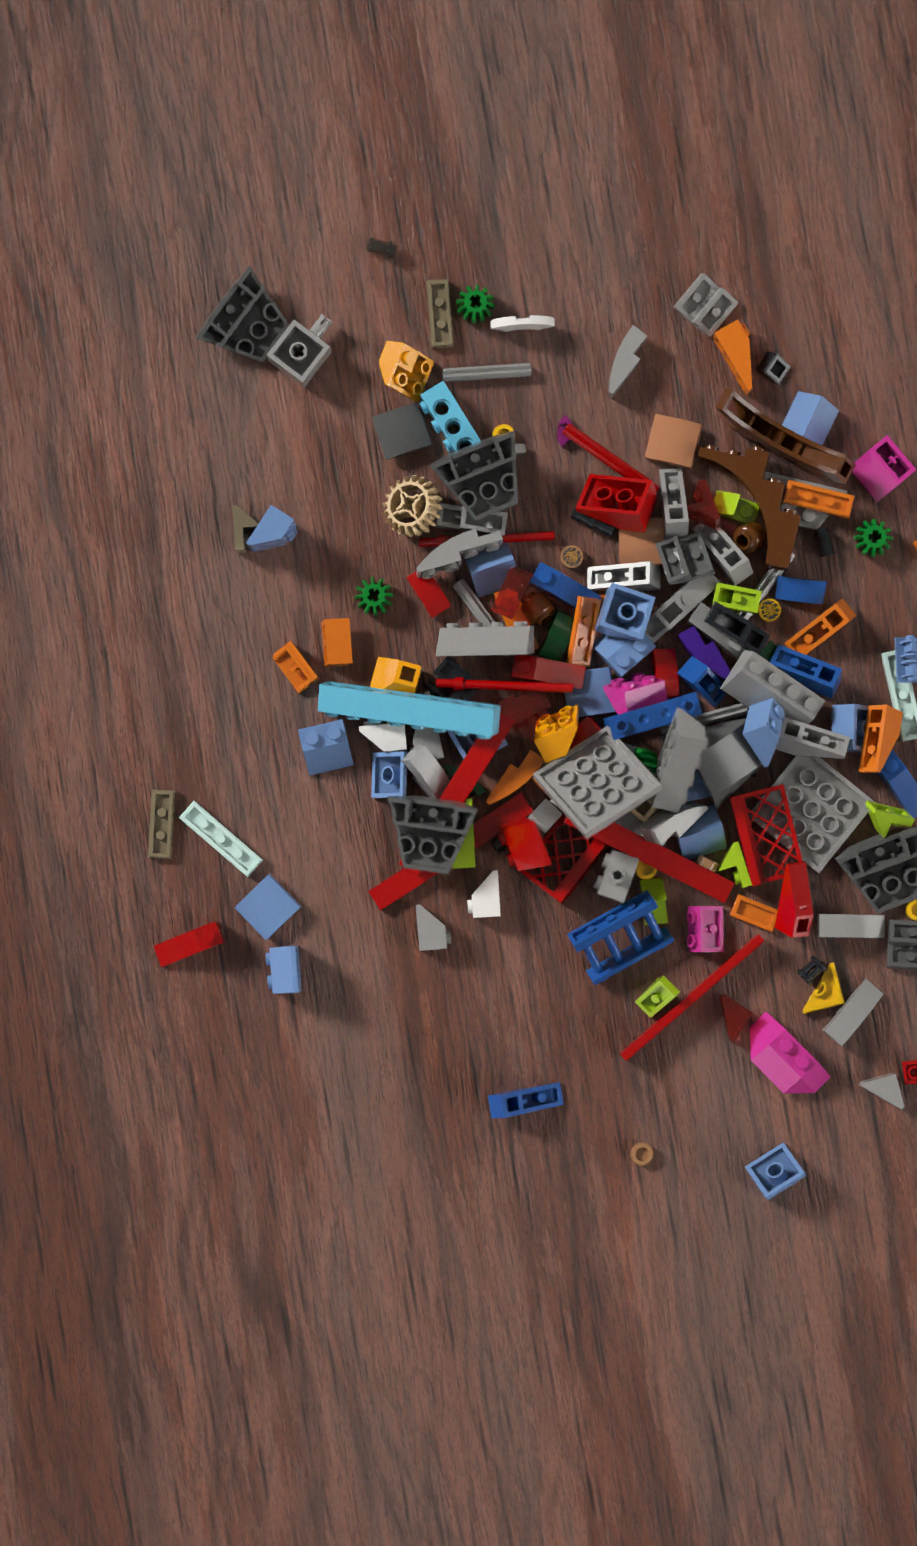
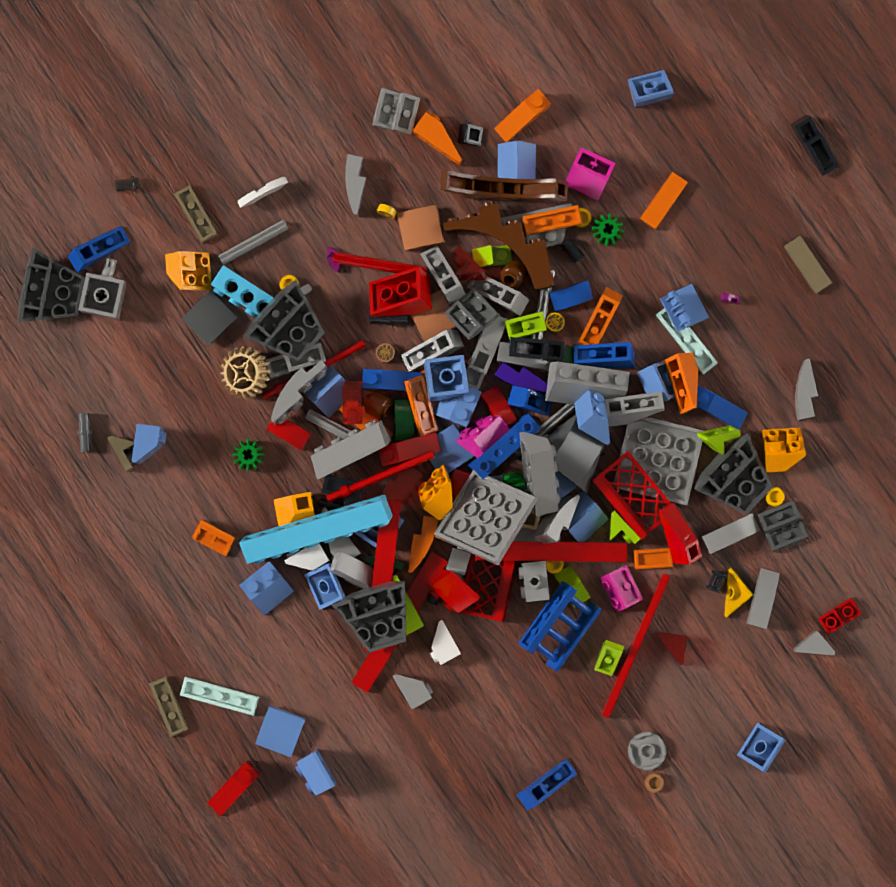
camera: 25 degrees left, 0 degrees up
(211, 489) = (84, 432): none -> dark grey pin
(318, 301) = (98, 249): none -> blue slope
(336, 642) = (236, 503): orange hinge -> none
(484, 304) = (213, 197): green gear -> none
(645, 406) = (386, 211): none -> yellow tile
(650, 1115) = (647, 750): none -> light grey tile
(707, 863) = (599, 538): medium nougat tile -> none
(784, 1058) = (727, 659): dark pink wedge -> none
(840, 373) = (522, 115): none -> orange slope
(856, 514) = (585, 217): none -> yellow tile

